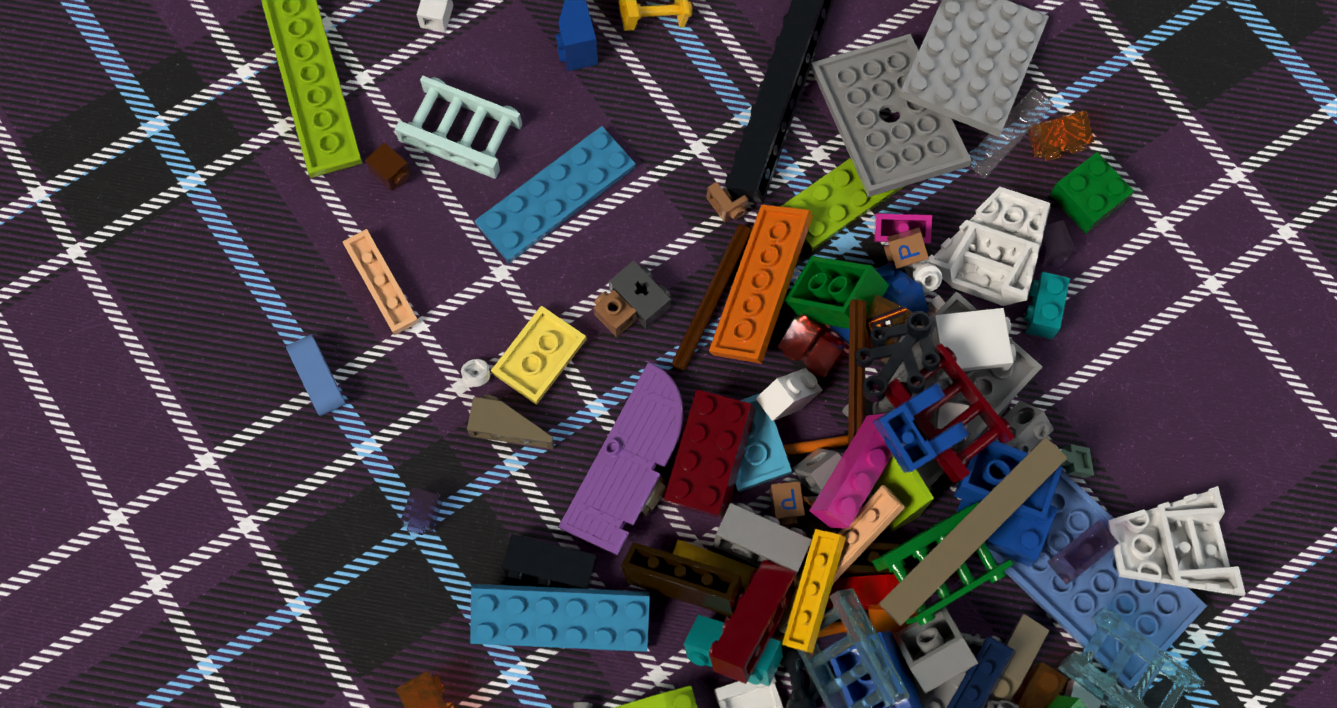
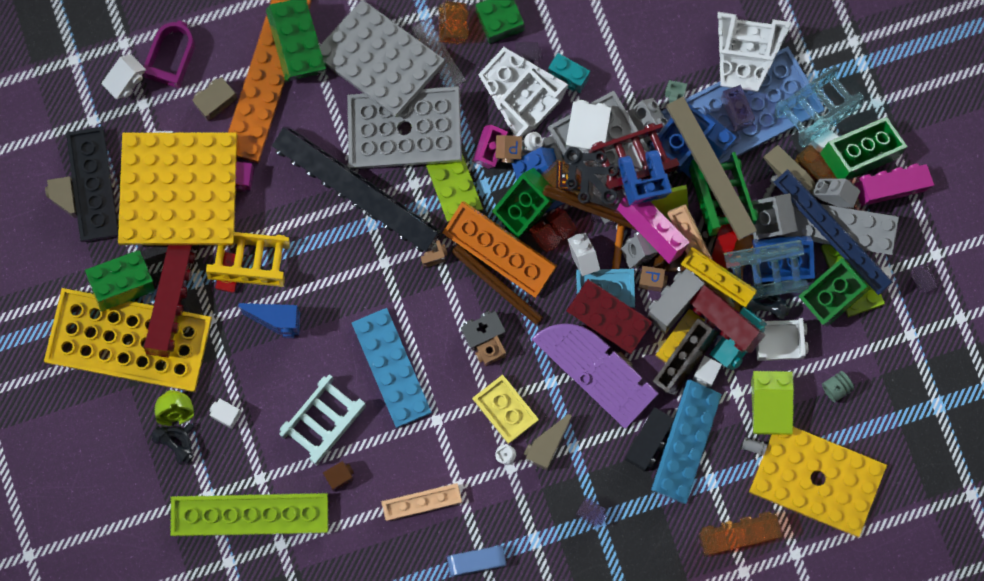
camera: 70 degrees left, 5 degrees up
(671, 619) = (707, 372): none -> white brick

